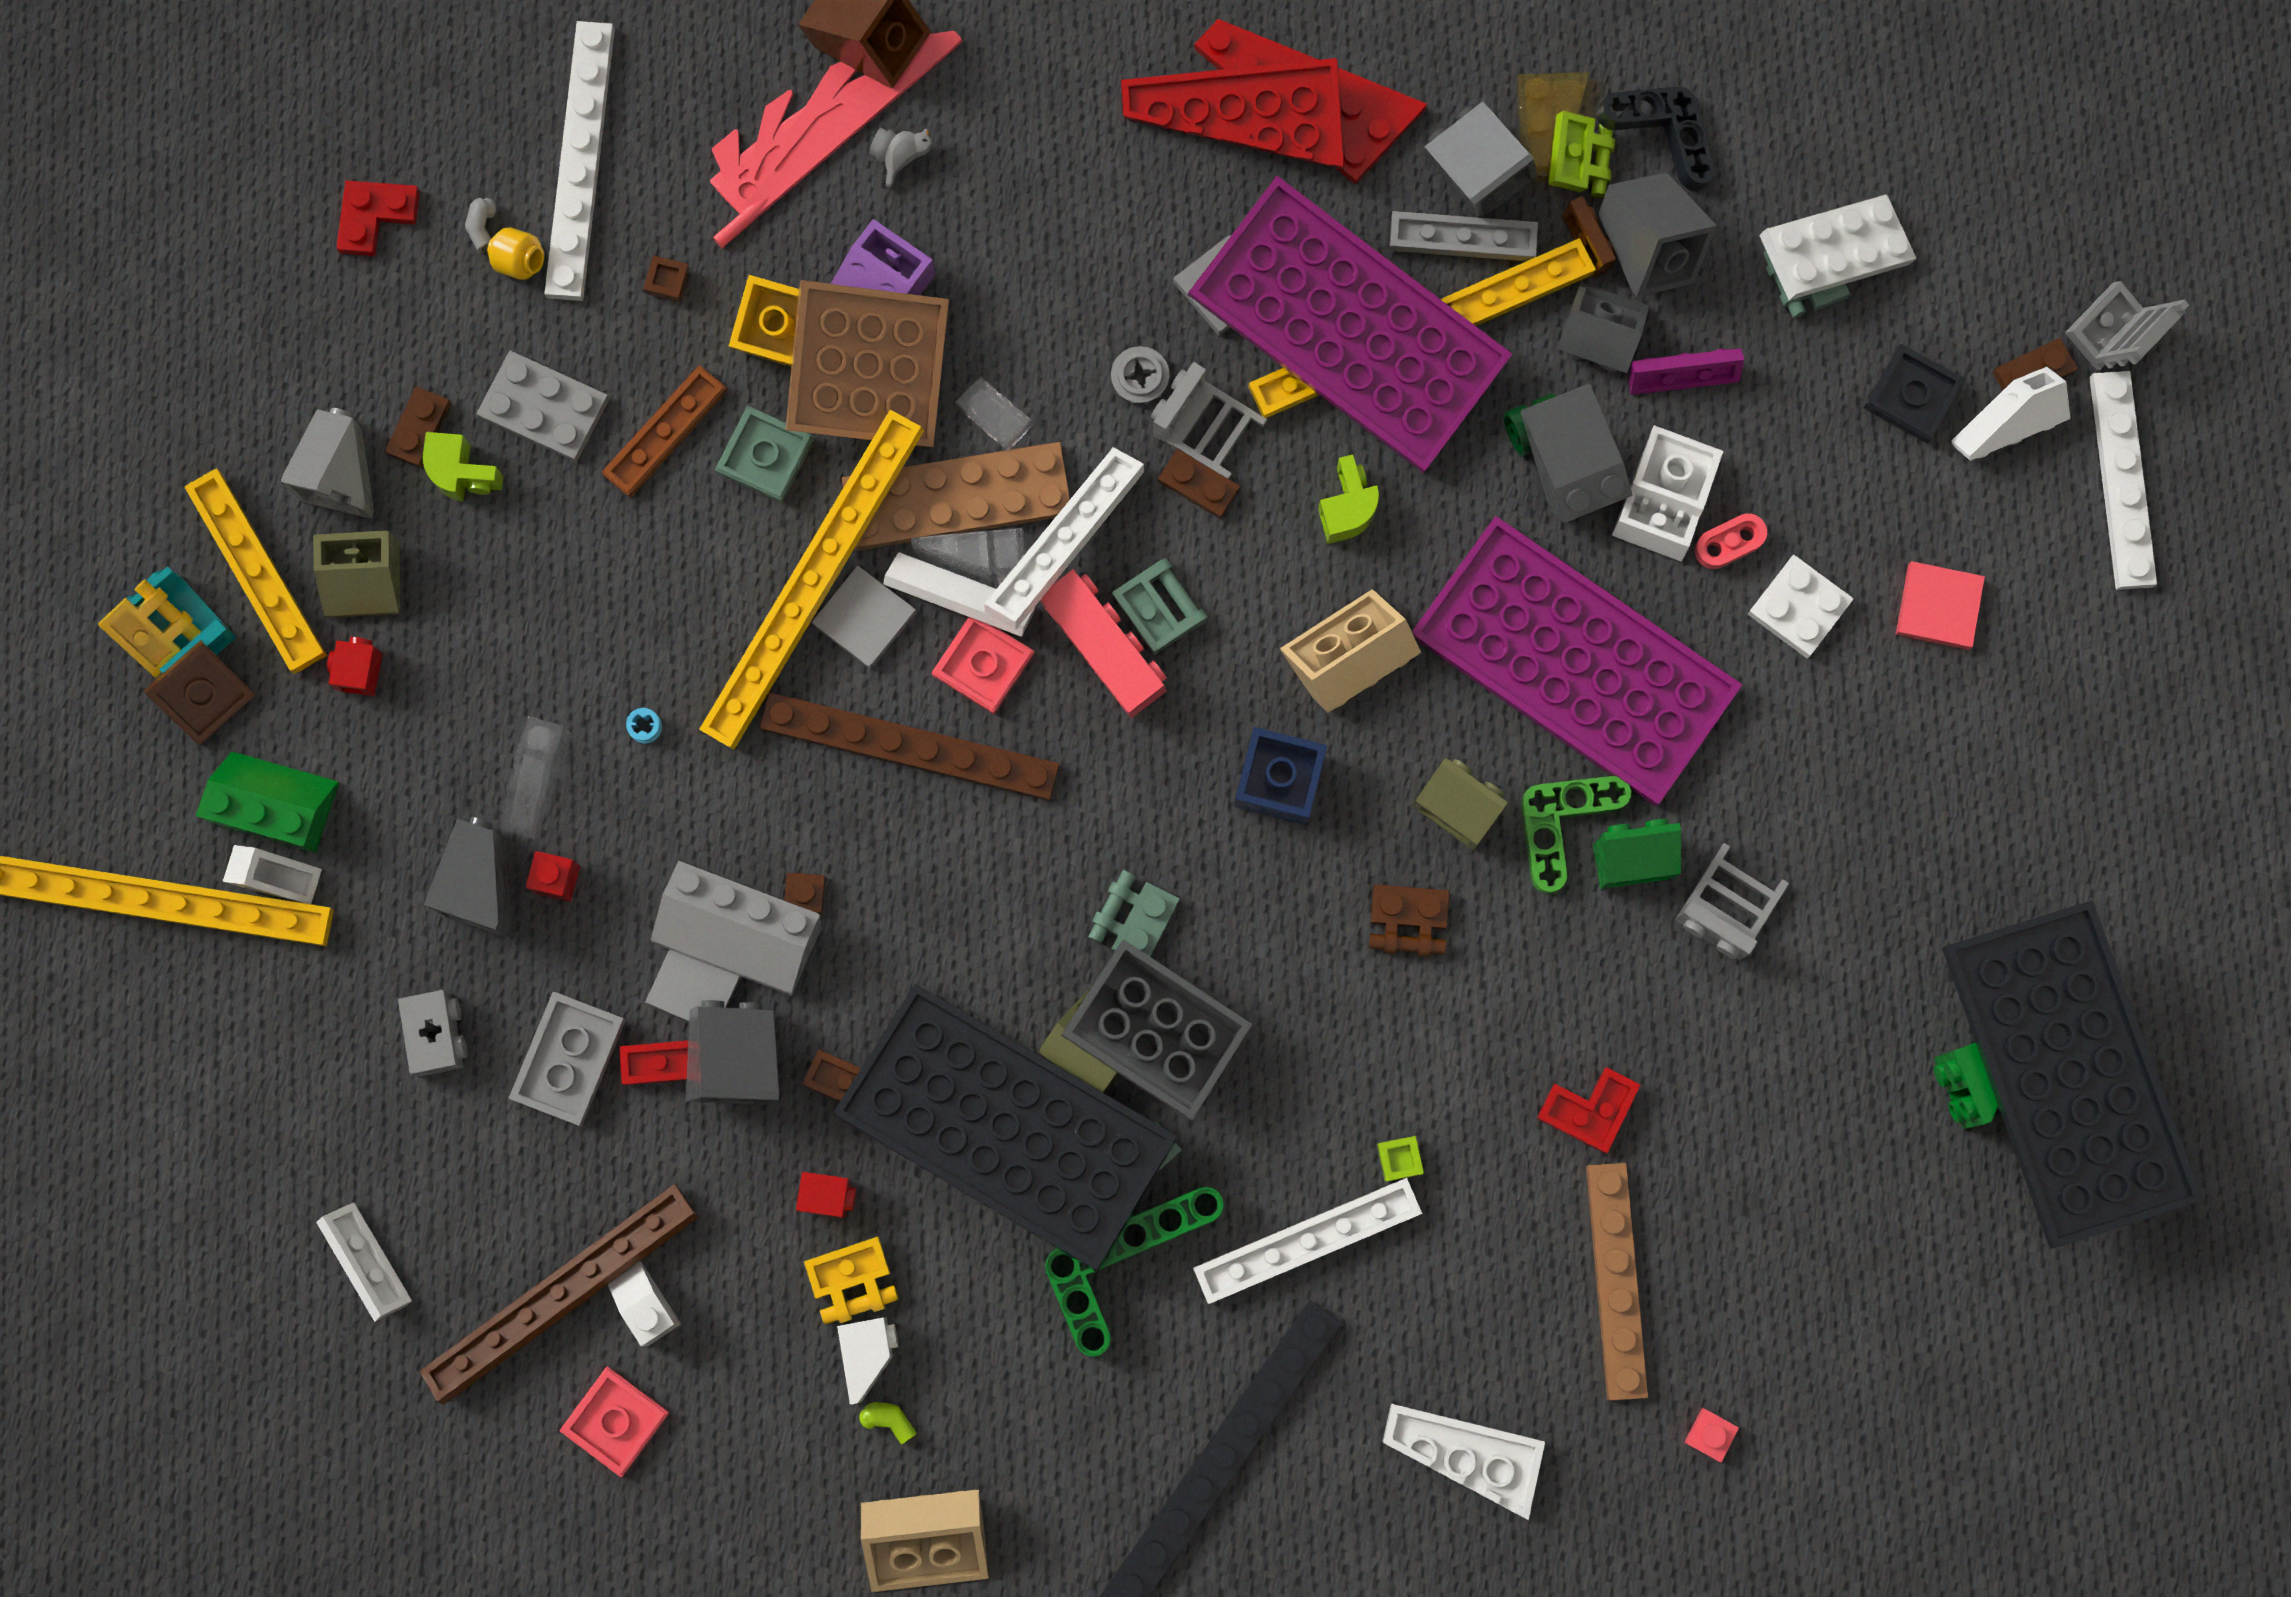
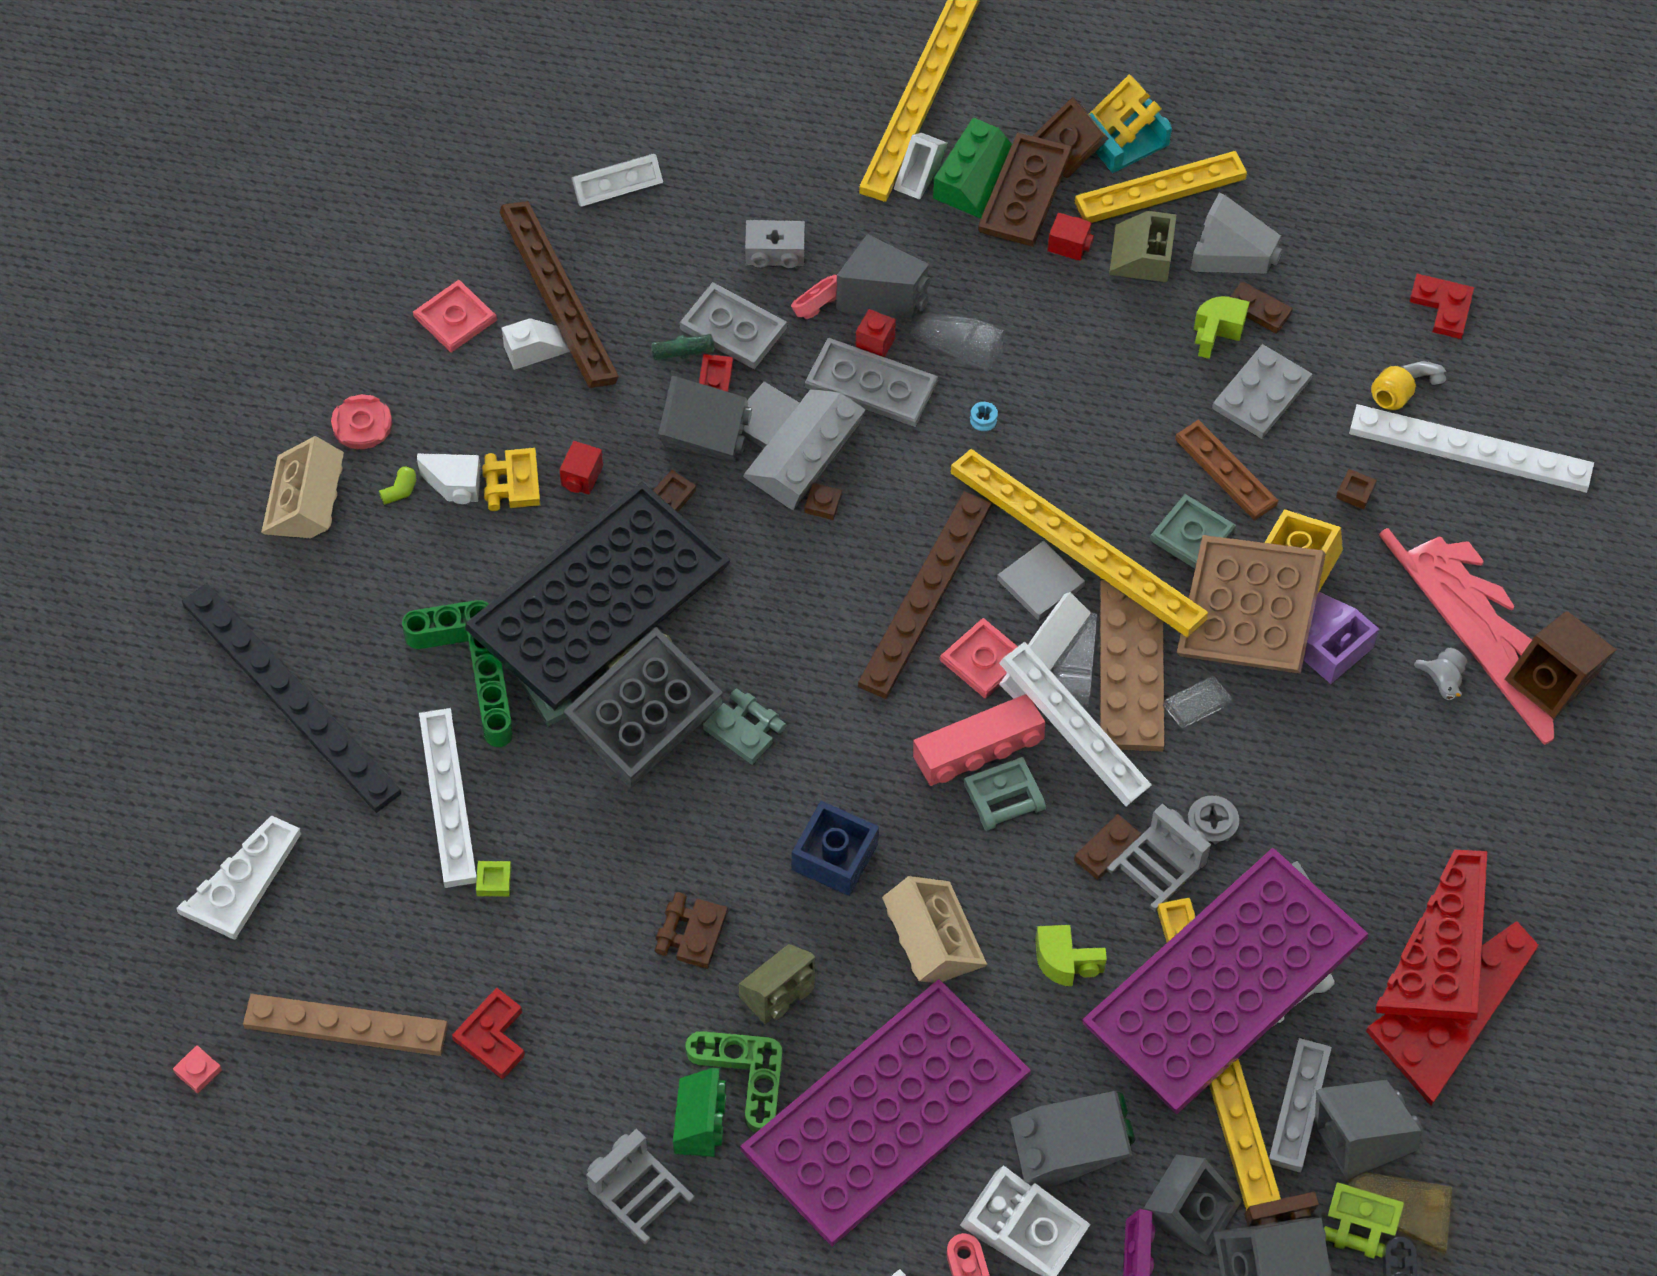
camera: 100 degrees right, 20 degrees down
(291, 734) = (1025, 189): none -> reddish brown plate
(504, 962) = (809, 303): none -> coral plate
(615, 1113) = (683, 347): none -> clear green pin
(617, 872) = (872, 381): none -> light grey tile
(815, 1495) = (361, 430): none -> coral tile

